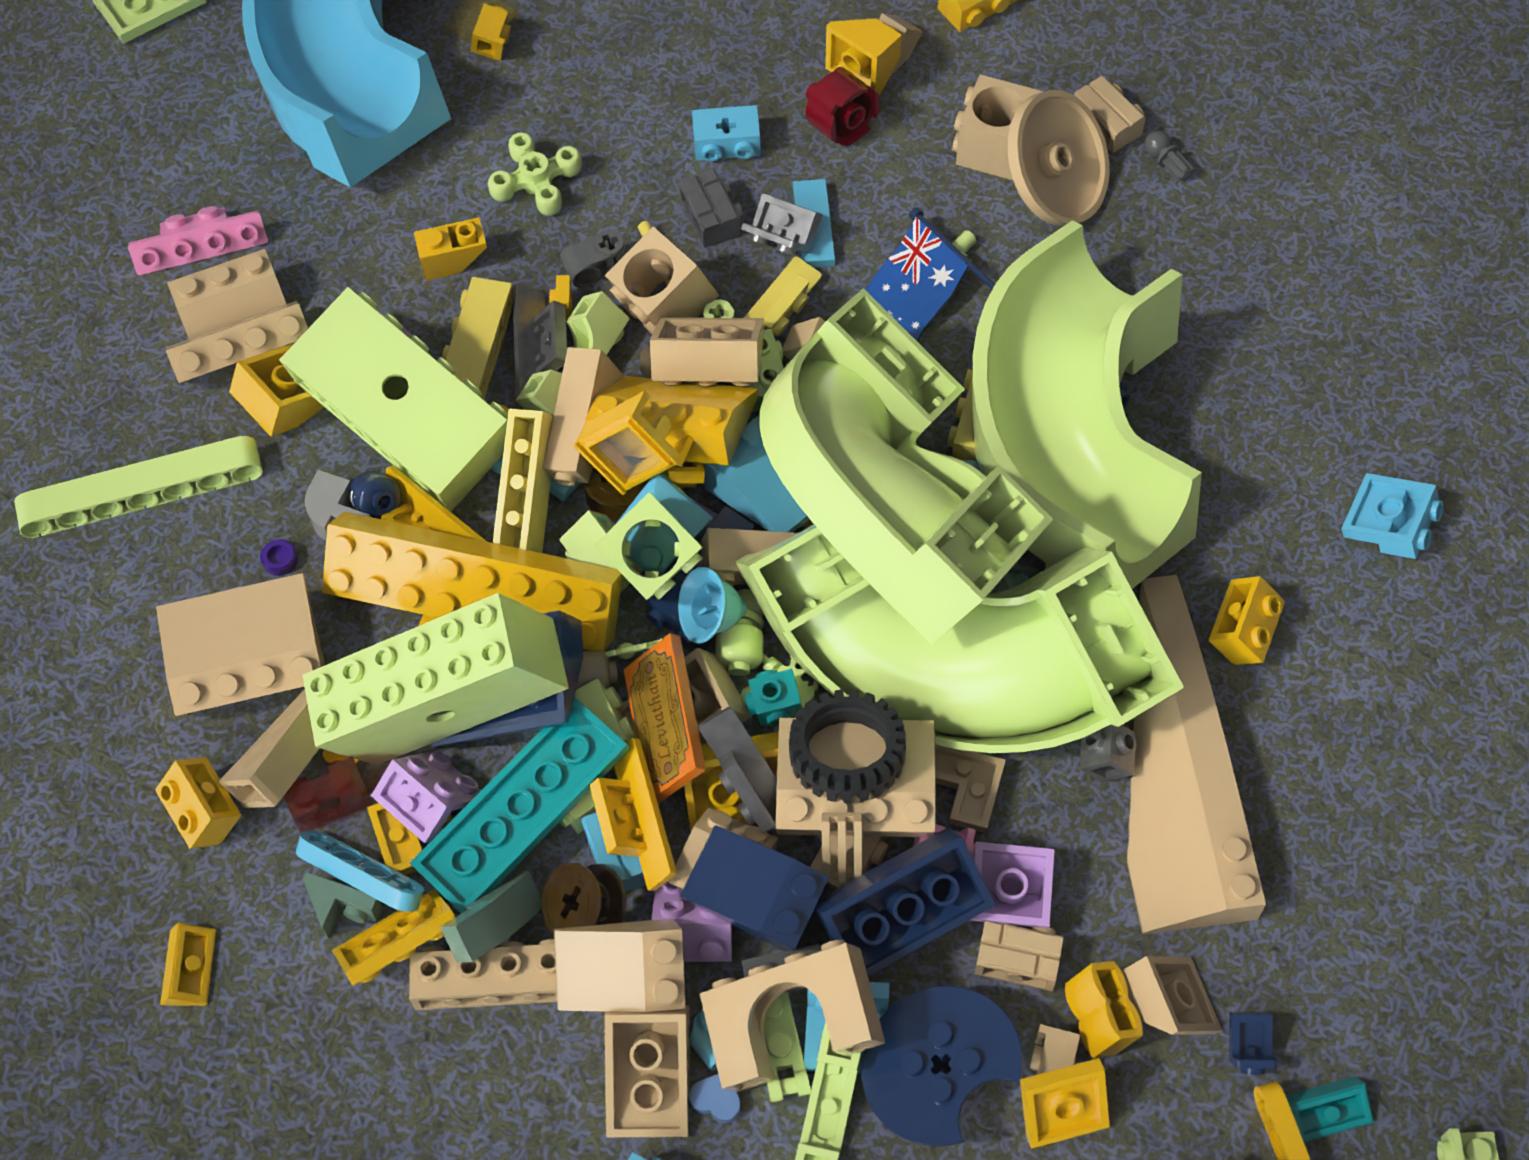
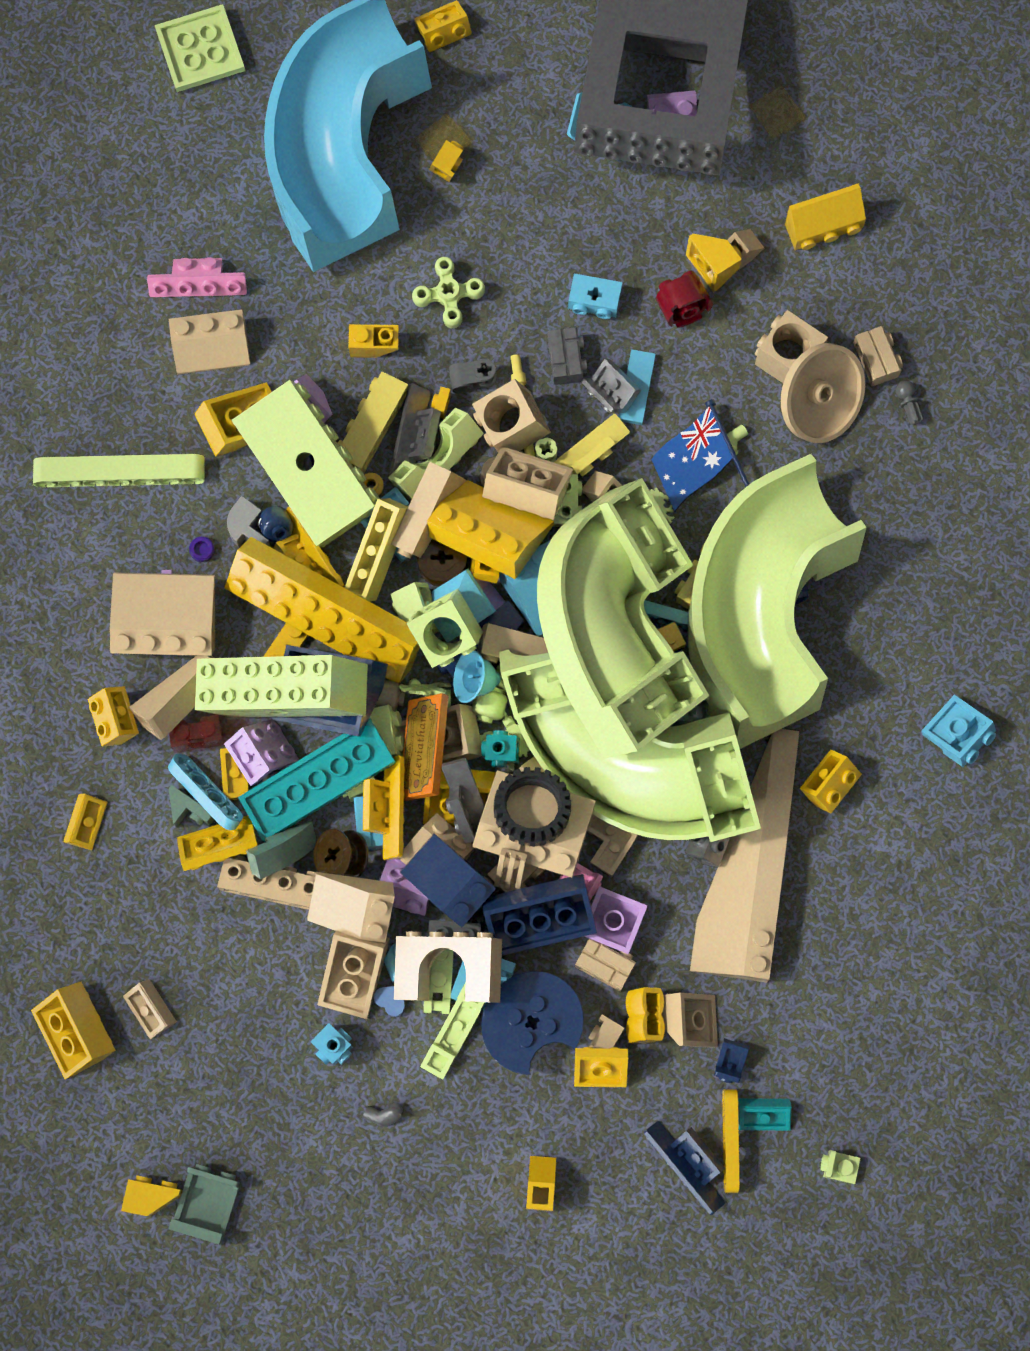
camera: 15 degrees right, 15 degrees up
(237, 341) = (208, 377): tan brick -> none
(628, 446) = (446, 552): yellow window -> none

